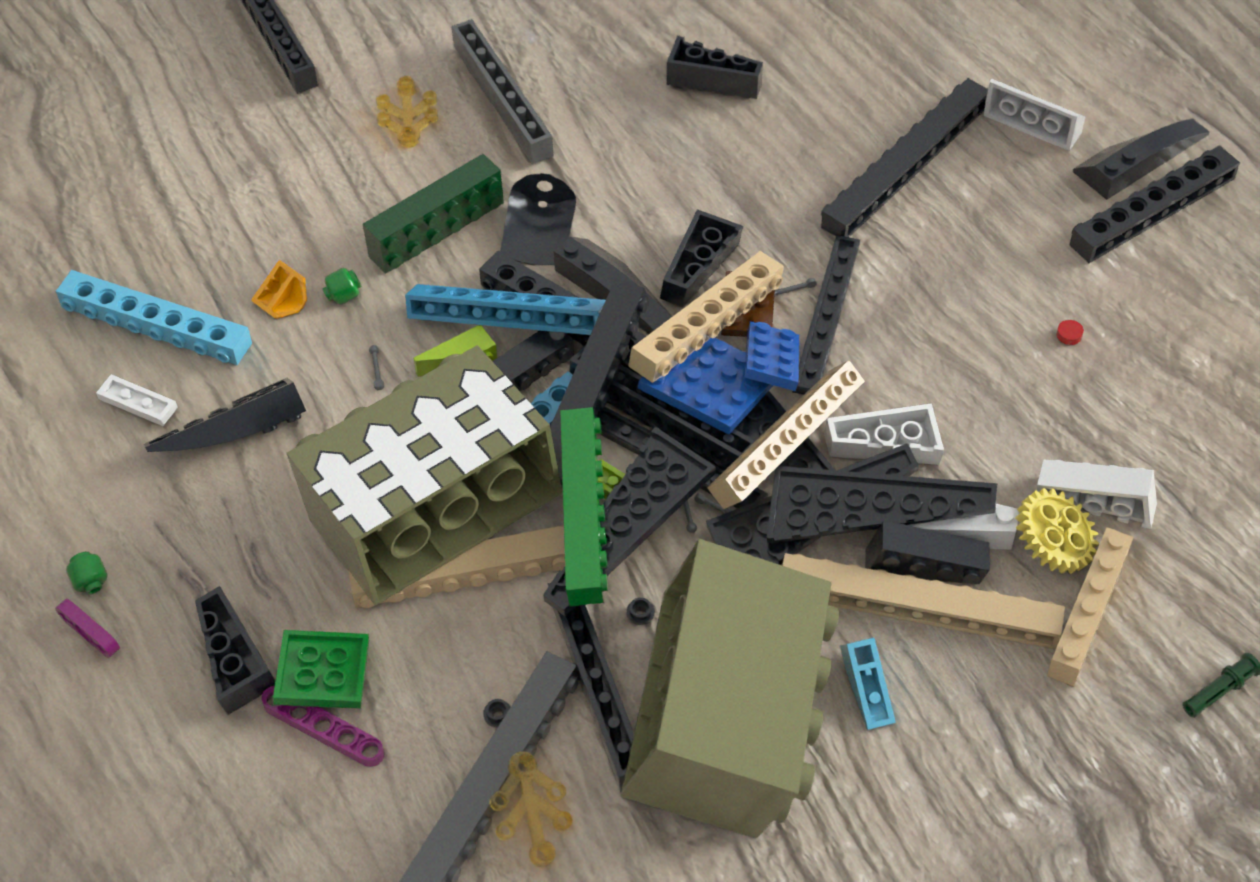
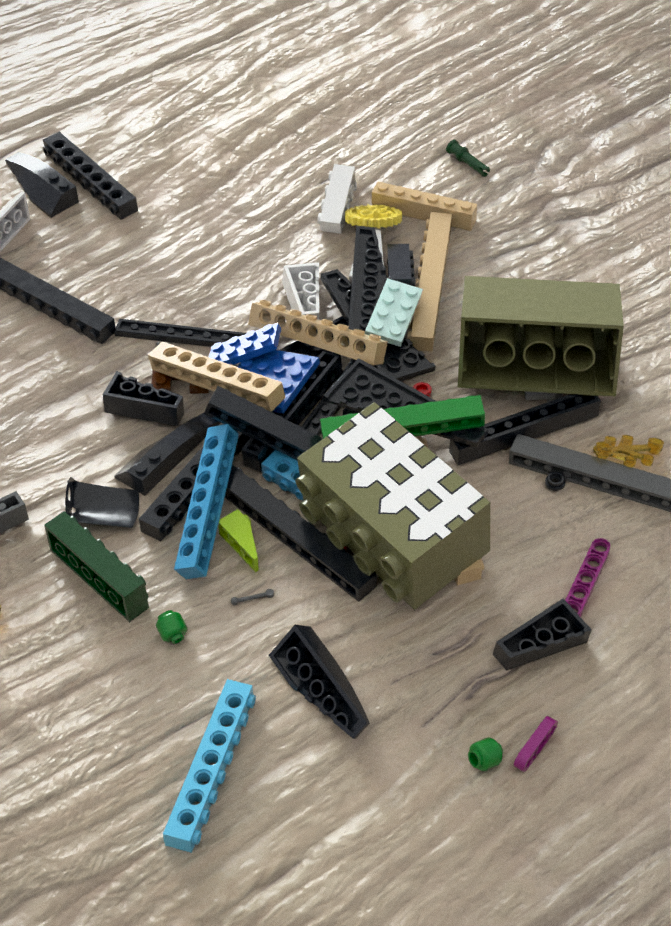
camera: 95 degrees left, 5 degrees down
(137, 400) = (302, 759): white plate -> none
(282, 292) = (177, 671): light orange slope -> none
(321, 669) = (545, 579): green plate -> none
(817, 524) = (394, 311): none -> light aqua plate
(1070, 332) = (202, 217): red tile -> none

